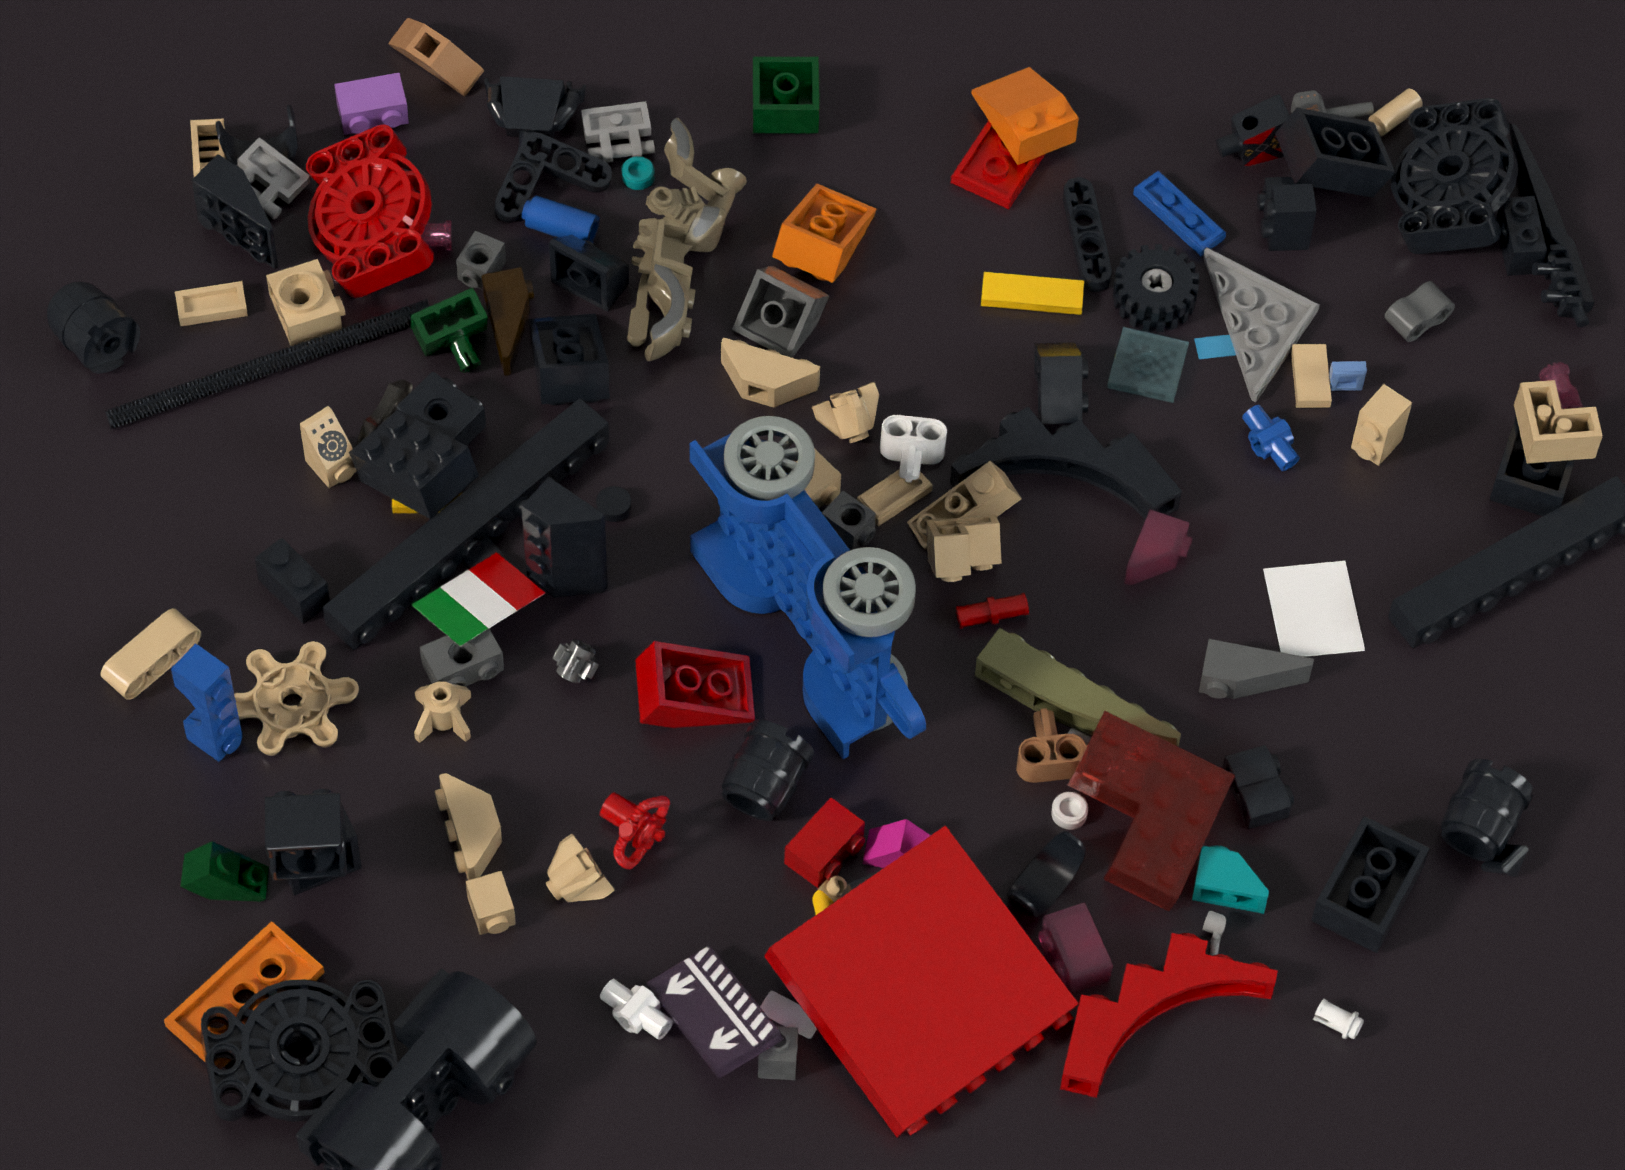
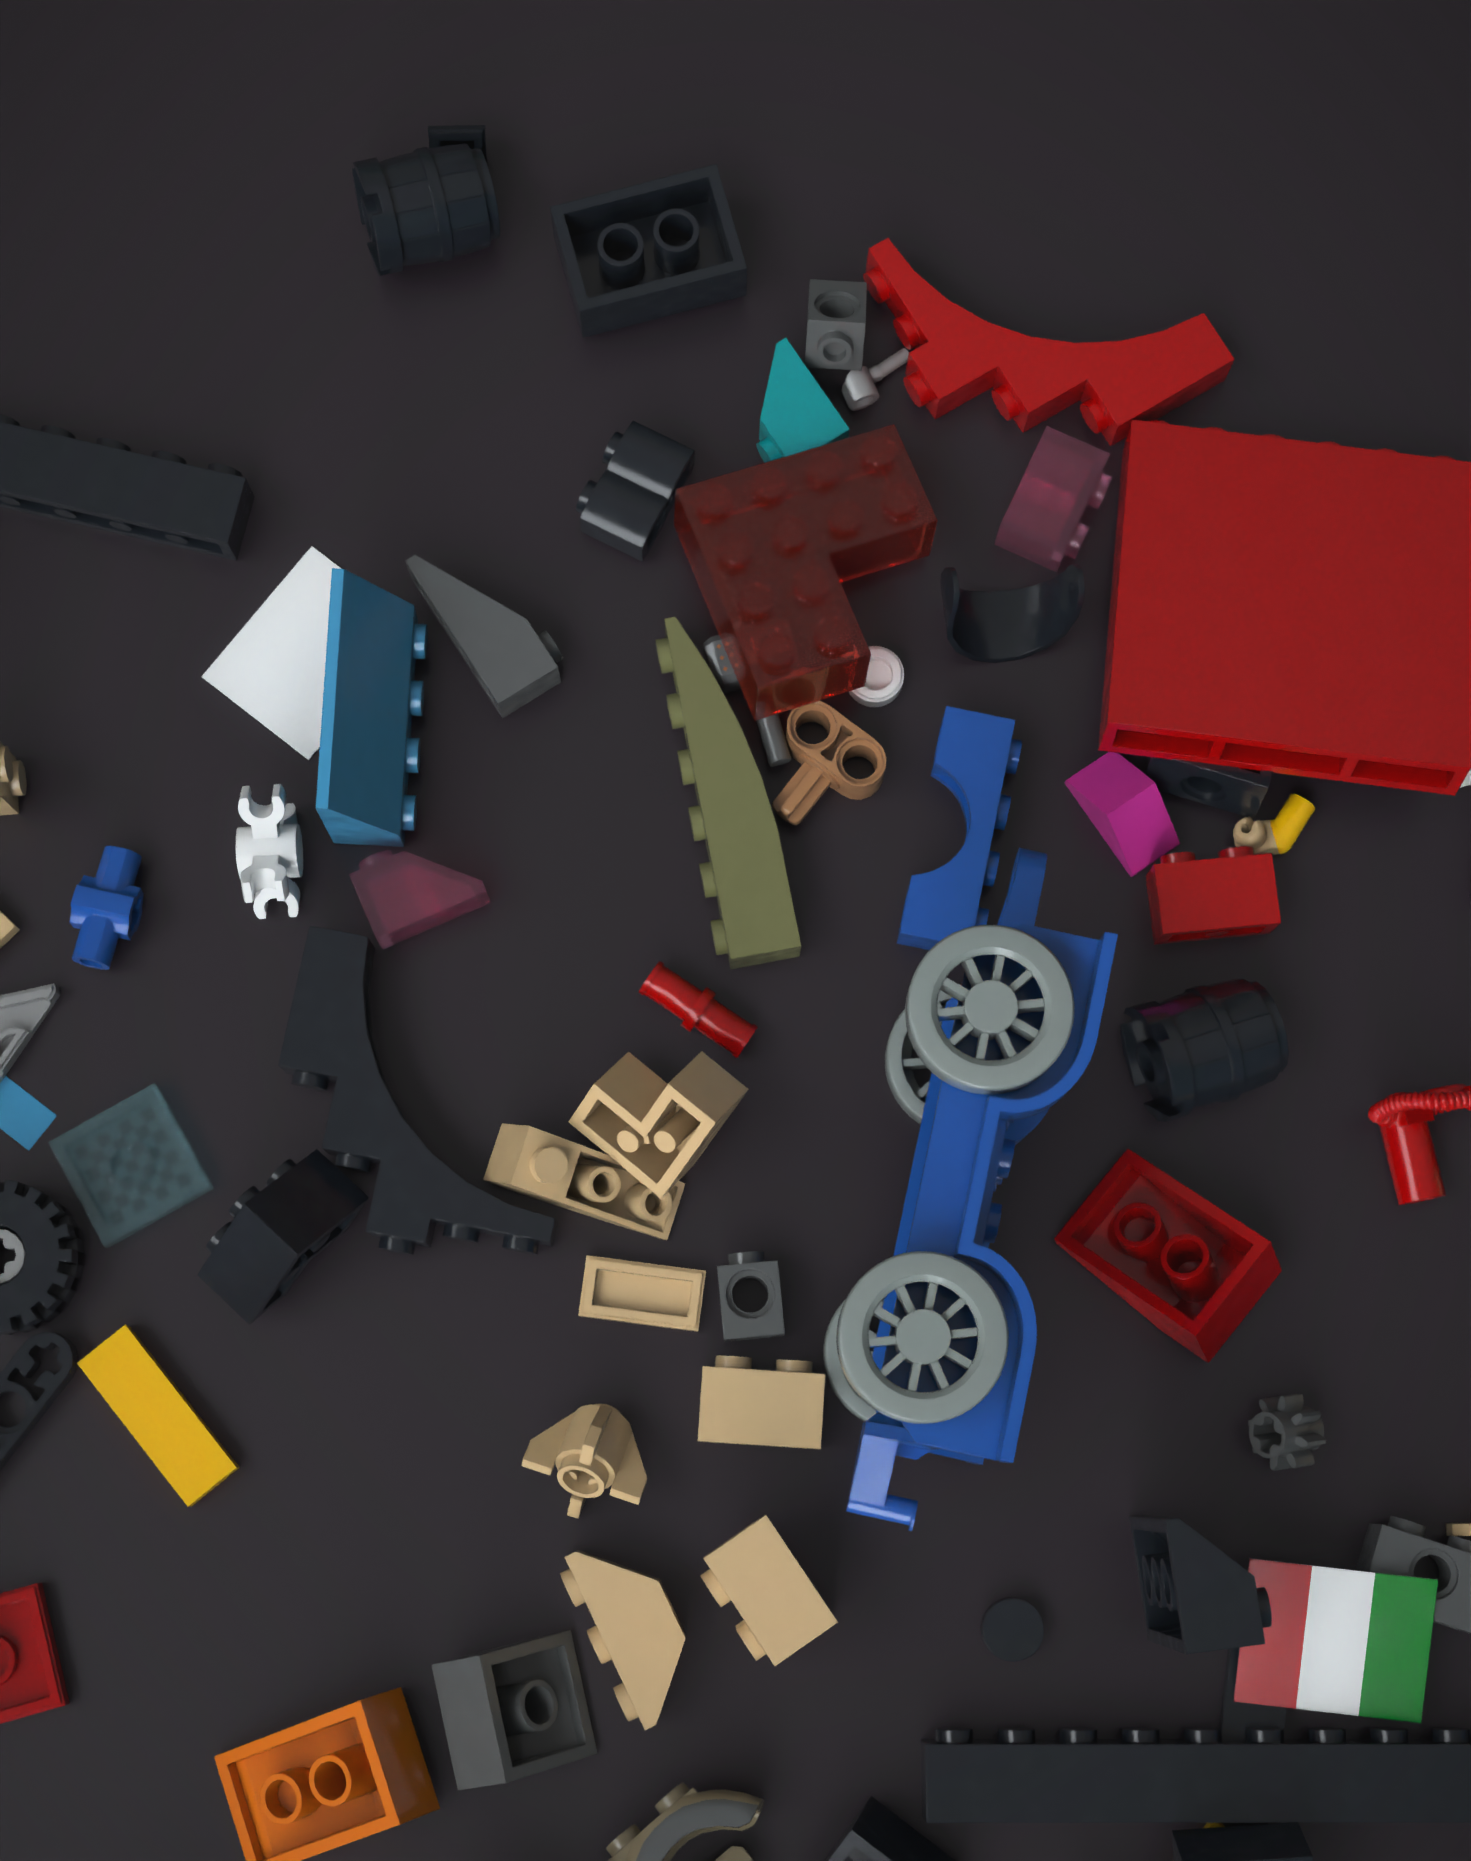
camera: 135 degrees left, 20 degrees up
(721, 409) = (768, 1591): none -> tan brick
(912, 443) = (561, 1326): white beam -> none
(987, 805) = (971, 762): none -> blue arch
(1230, 503) = (269, 851): none -> white pin
(1255, 578) = (369, 714): none -> dark azure slope
(1267, 932) = (835, 324): none -> dark grey brick
(1338, 1019) = (842, 147): white pin -> none

